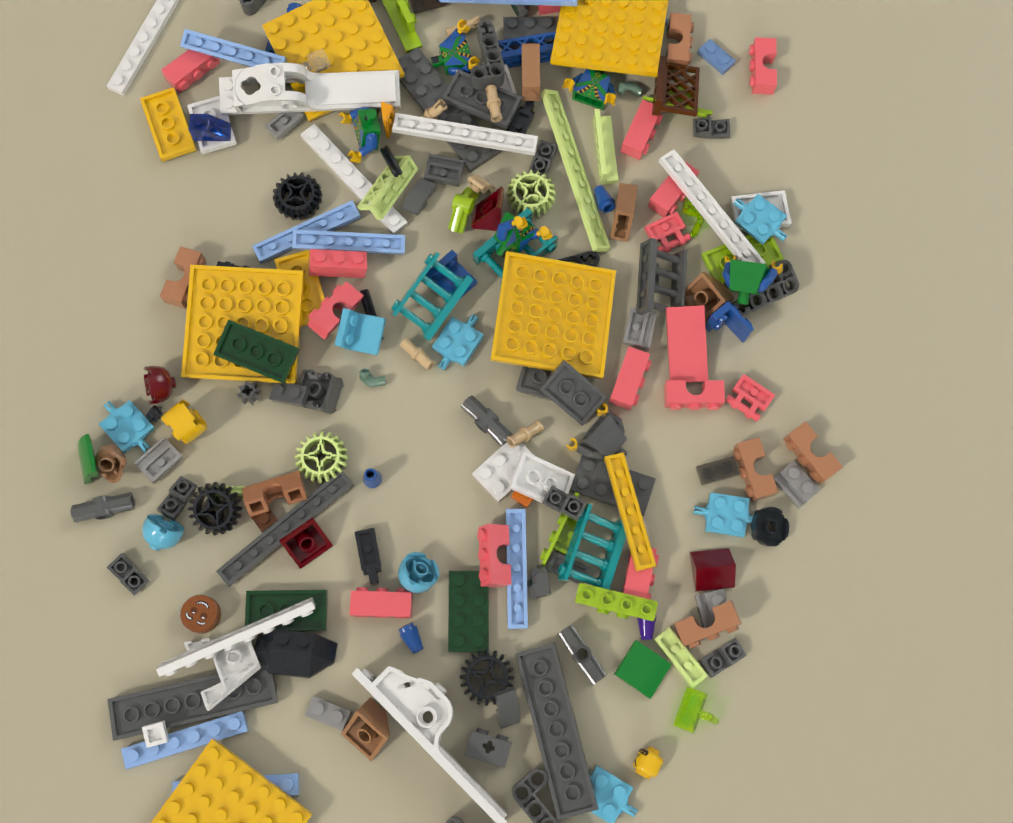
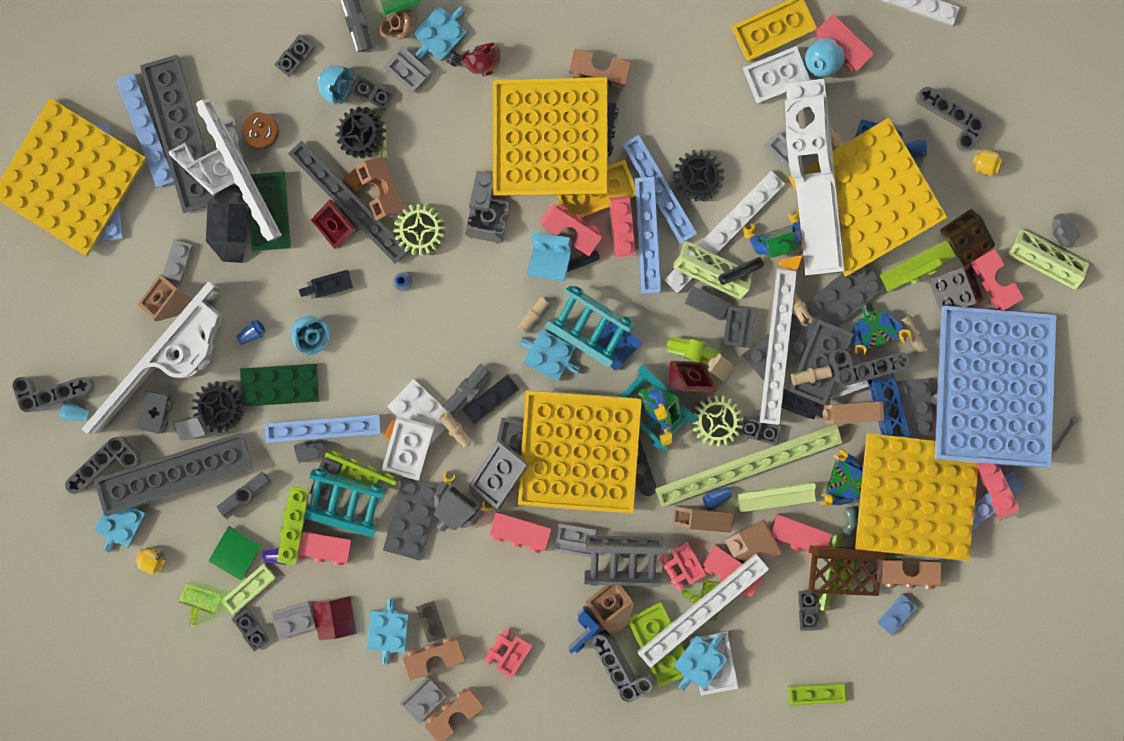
camera: 90 degrees right, 15 degrees up
(155, 734) = (147, 104): white plate -> none
(185, 422) = (444, 91): yellow brick -> none
(200, 80) = (824, 57): none -> medium azure cylinder
(209, 128) = (766, 75): clear blue slope -> none
(227, 50) = (854, 90): light blue plate -> none
(254, 394) = (475, 149): dark grey gear -> none
(256, 351) = (519, 155): dark green plate -> none
(317, 61) = (846, 182): clear plate -> none
(371, 381) = (502, 271): sand green arm -> none
(381, 603) = (280, 301): coral brick -> none
(492, 571) = (346, 401): coral arch -> none
(497, 400) = (491, 399): none -> black plate
(564, 503) = (384, 471): dark grey slope -> none
(630, 512) = (381, 535): yellow tile -> none
(646, 168) = (753, 540): none -> medium nougat slope
(678, 397) = (506, 614): coral arch -> none
(687, 343) = (558, 588): coral tile -> none
(725, 619) = (271, 599): nougat arch -> none
(748, 277) = (627, 648): green torso -> none
(759, 526) = (381, 663): black plate -> none
(762, 79) = (869, 664): coral arch -> none
(788, 126) = (817, 694): none -> lime tile

